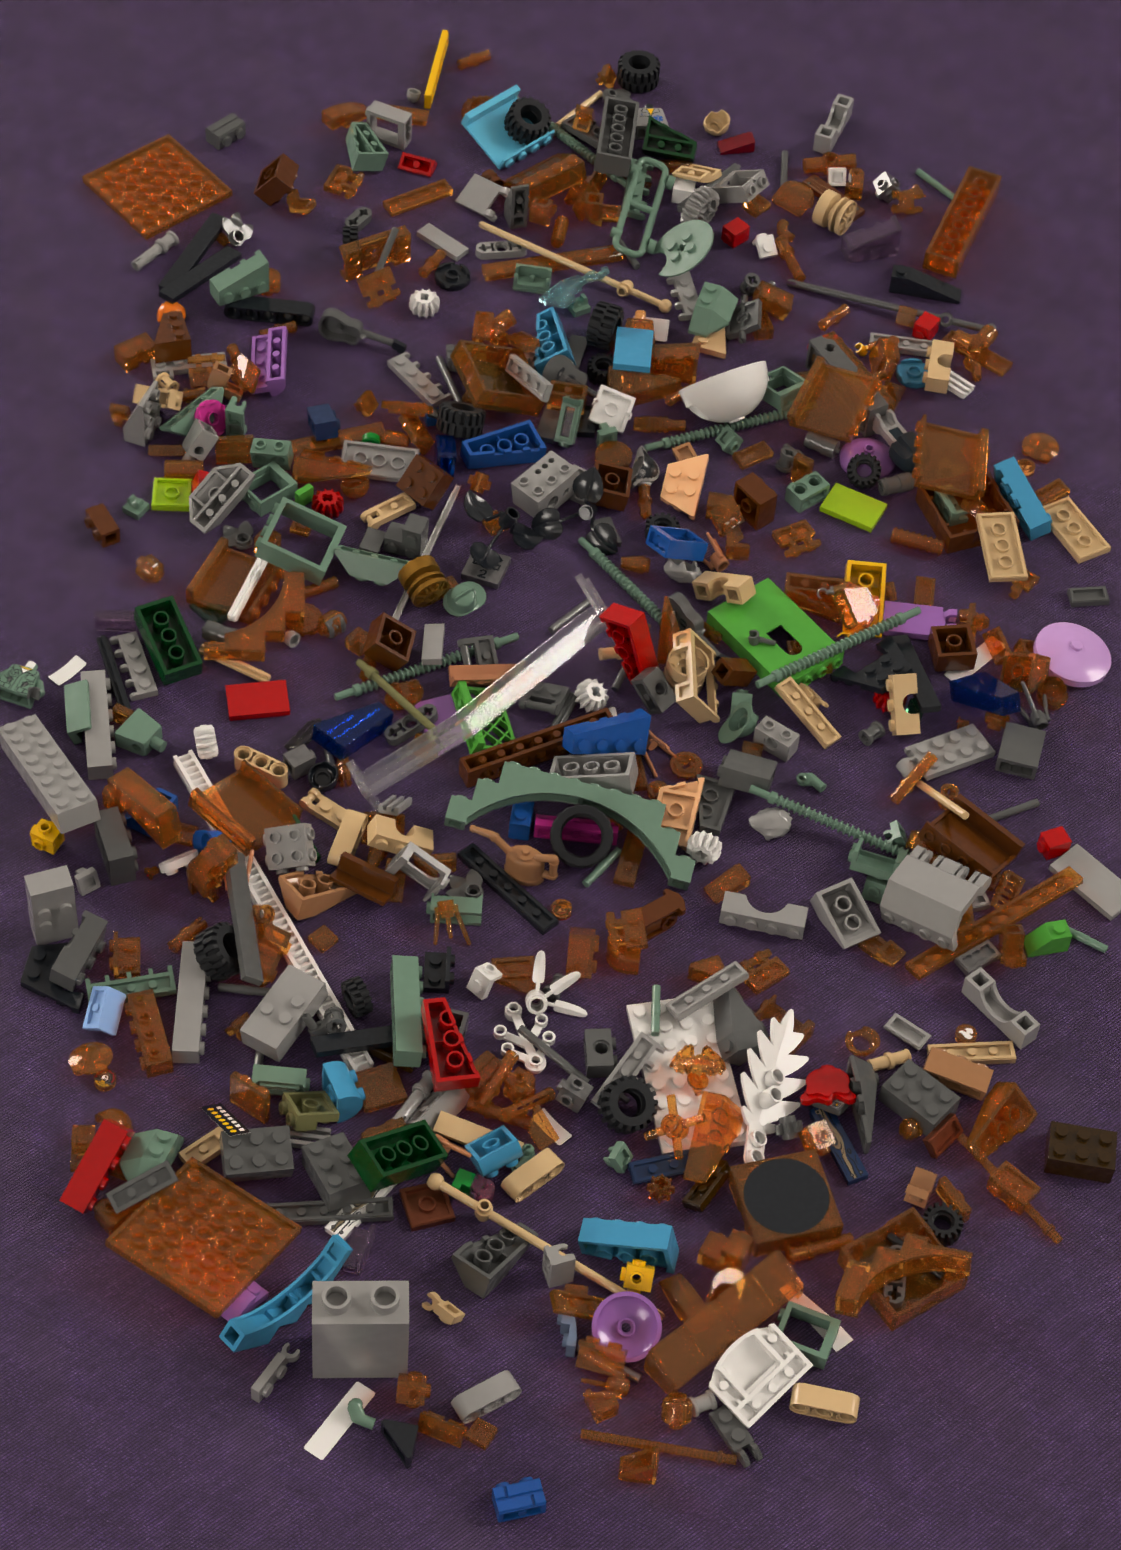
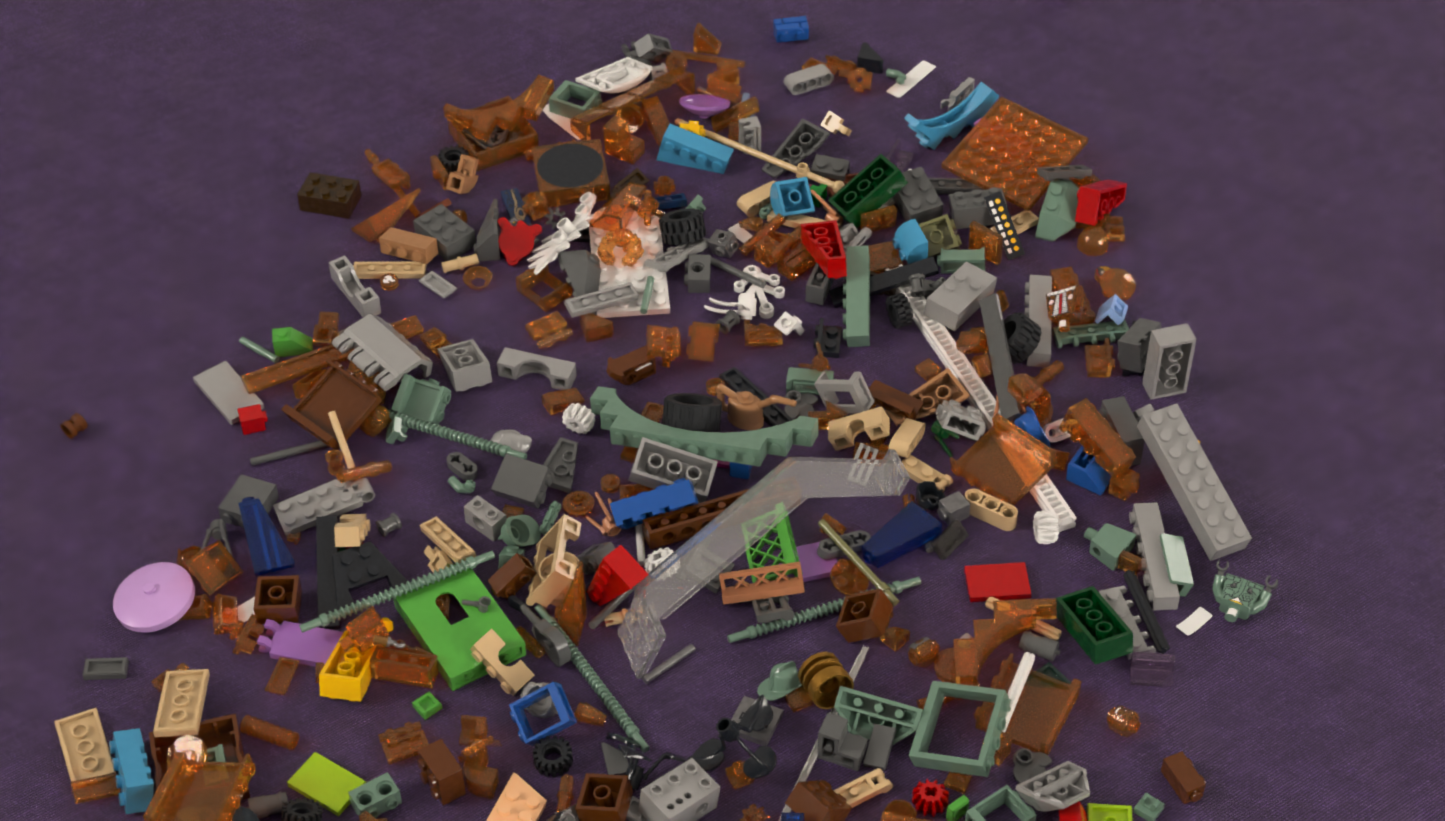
camera: 170 degrees left, 5 degrees down
(161, 993) = (1065, 307): none -> clear orange torso
(360, 1329) = (898, 77): light grey brick -> none
(433, 644) = (818, 624): light grey tile -> none
(447, 1227) = (830, 167): none -> dark grey bracket
(681, 807) = (595, 456): light nougat wing -> none
(711, 749) = (550, 517): none -> sand green axle
(713, 1421) = (653, 48): none -> dark grey brick
(718, 560) = (498, 717): nougat plant -> none
(780, 571) = (427, 705): none -> bright green tile
(816, 801) = (464, 464): none -> dark grey beam
(824, 1403) = (569, 67): tan beam -> none

